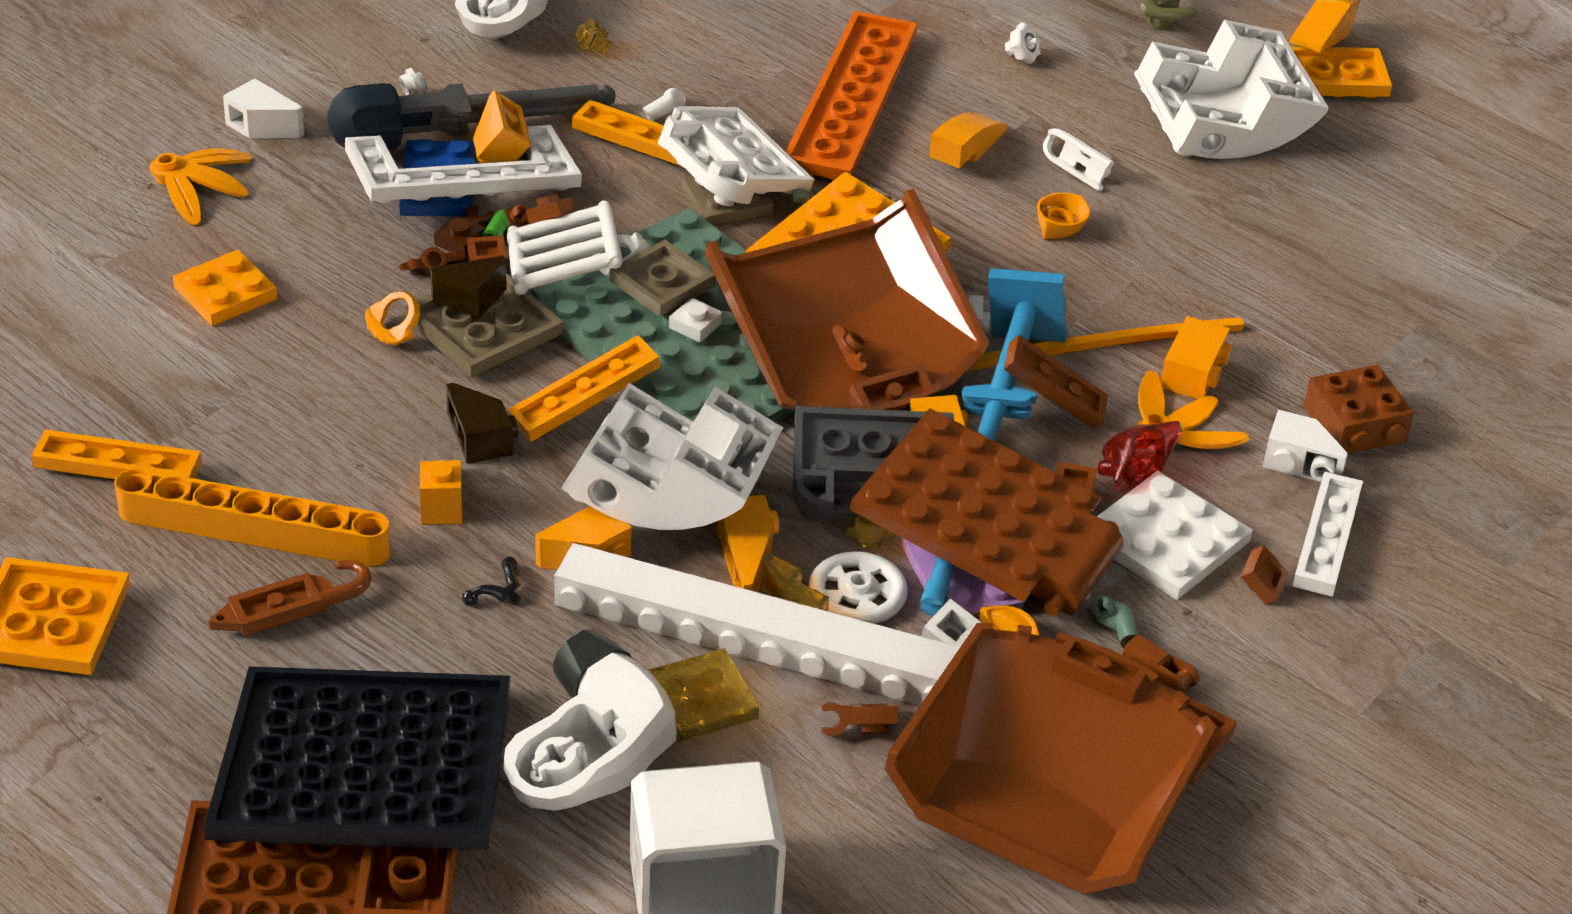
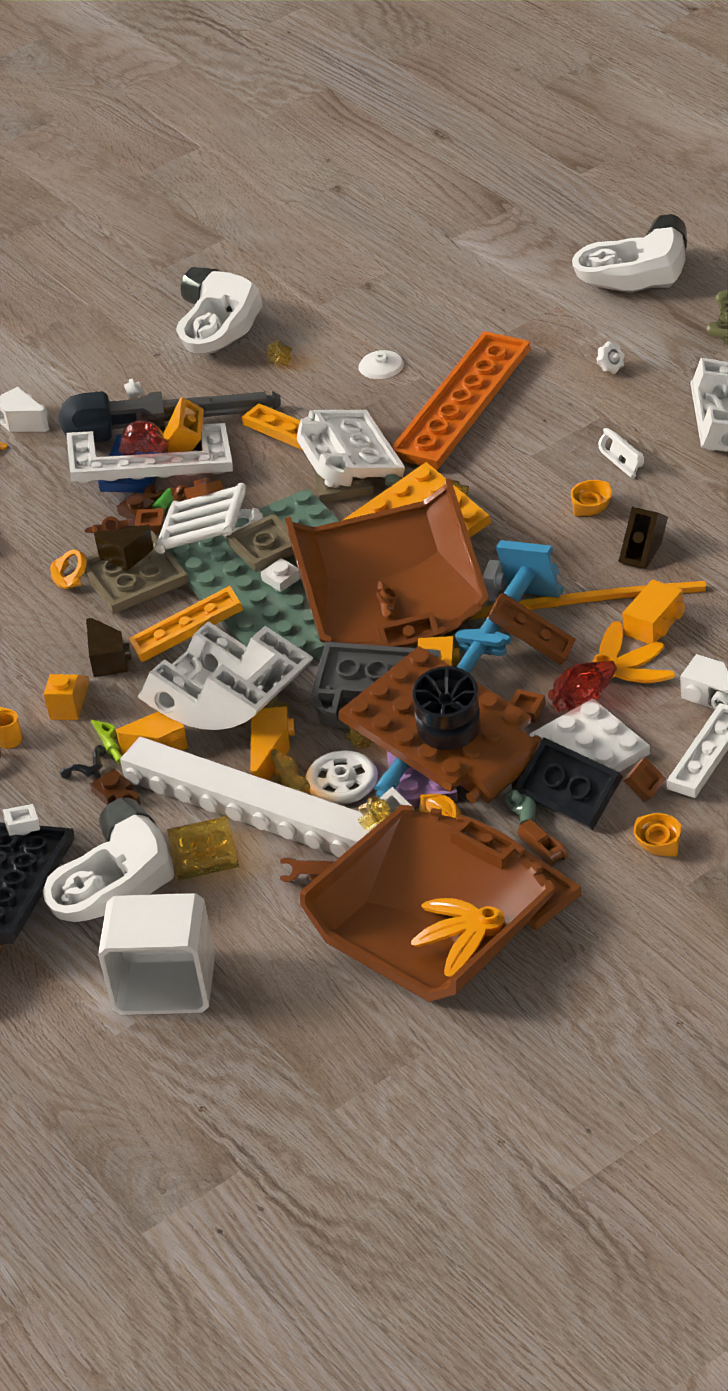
camera: 20 degrees right, 0 degrees up
(438, 667) = (21, 820): none -> white plate
(457, 141) = (142, 437): none -> clear red hair
(513, 542) = (108, 738): none -> lime hand
(547, 617) = (112, 787): none -> reddish brown plate
(664, 104) = (324, 402): white arm -> none
(728, 52) = (381, 364): none -> white piece
(942, 635) = (373, 812): none -> clear yellow plate
(965, 138) = (537, 434): light orange slope -> none
(1011, 489) = (446, 708): none -> black wheel
(1128, 778) = (468, 919): none -> light orange plant
(1147, 263) = (642, 537): none -> dark brown slope
(1173, 583) = (568, 783): none -> black plate
(1308, 646) = (658, 834): none -> light orange hat

